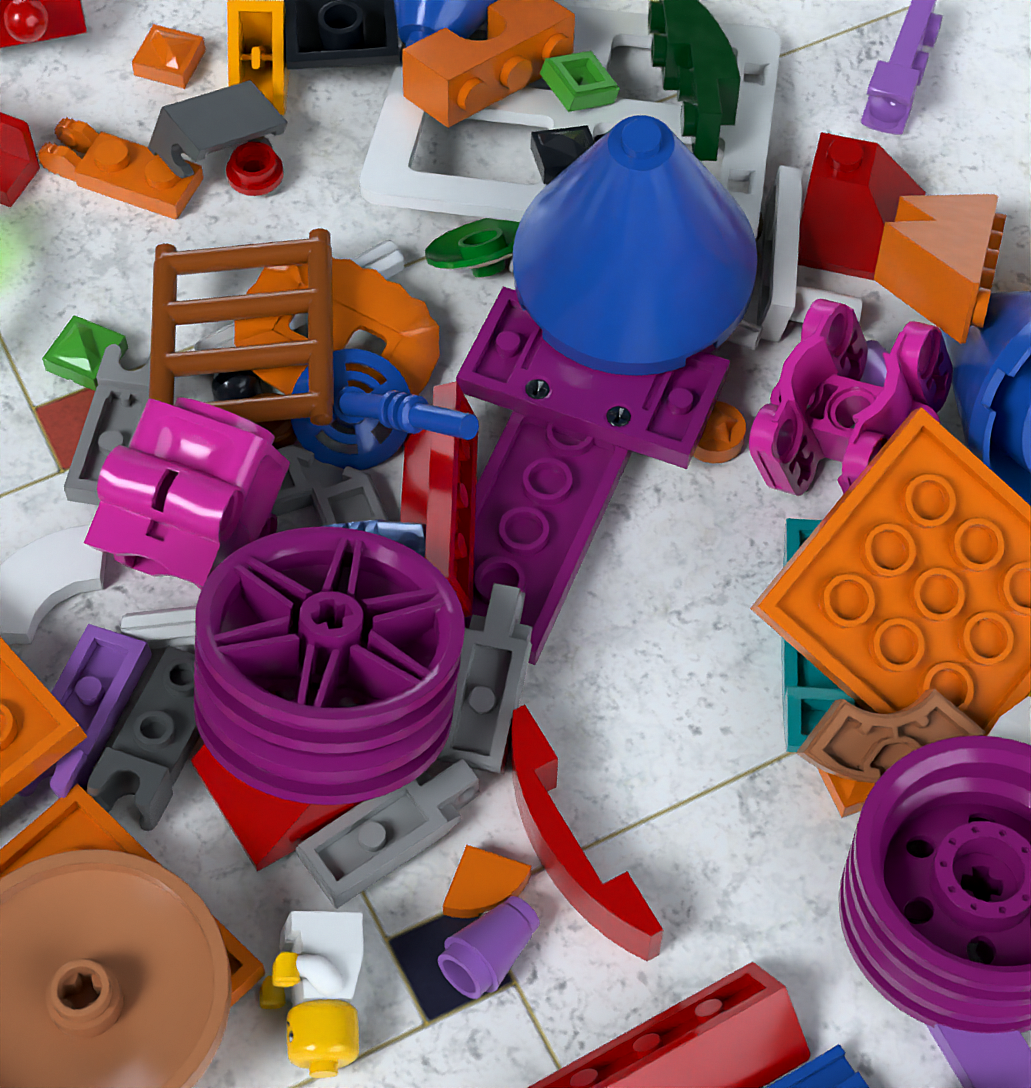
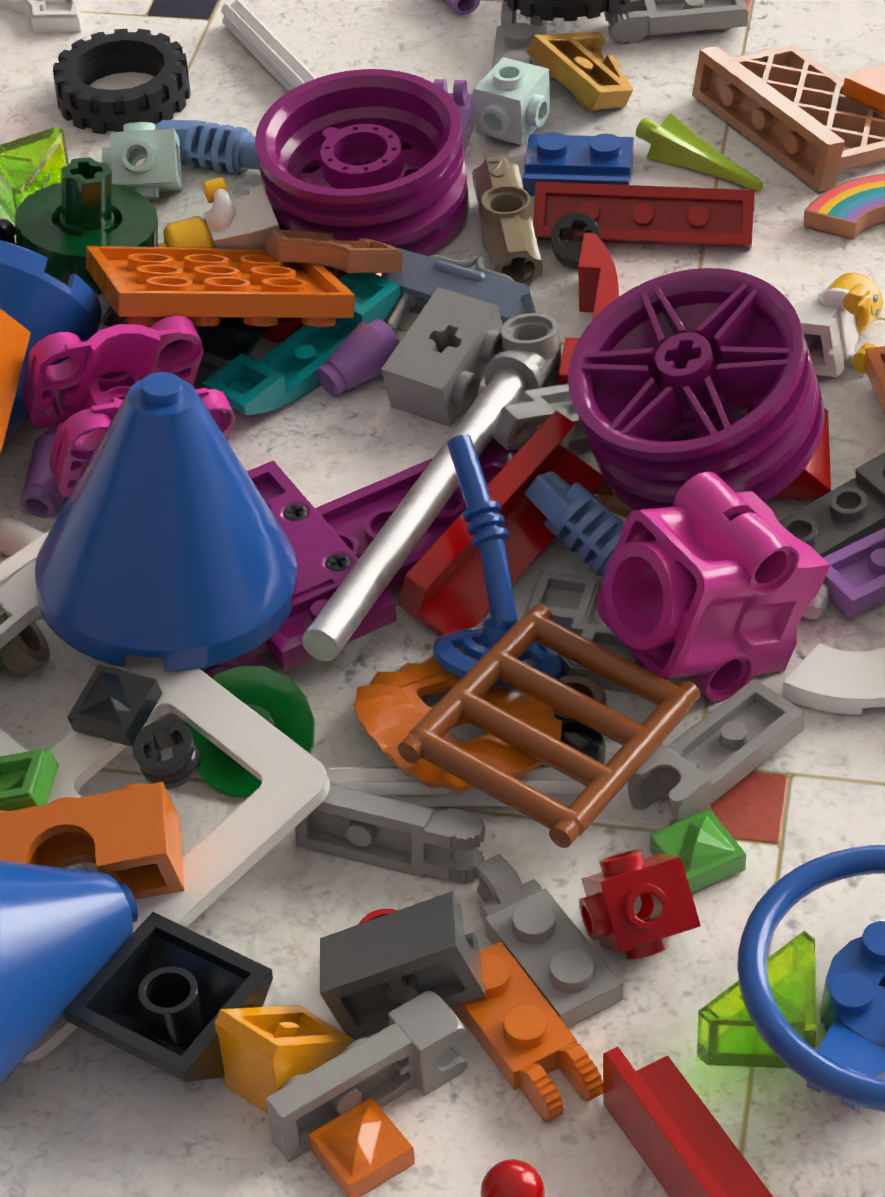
camera: 140 degrees left, 15 degrees down
(87, 260) = (638, 903): none -> red brick
(139, 224) = (545, 943): none -> light grey hinge
(193, 66) = (383, 1066): none -> light grey plate
(346, 217) = (394, 834): none -> light grey hinge
(499, 154) = (158, 737): none -> black bush
(573, 695) = (526, 362): none -> flat silver piece
(665, 691) = (443, 357): none -> light grey brick
(676, 963) = (565, 228): none -> black bush
(739, 801) = (425, 273): none -> sand blue piece
(755, 668) = (358, 357): none -> medium lavender cone
(816, 974) = (506, 220): none -> dark tan piece

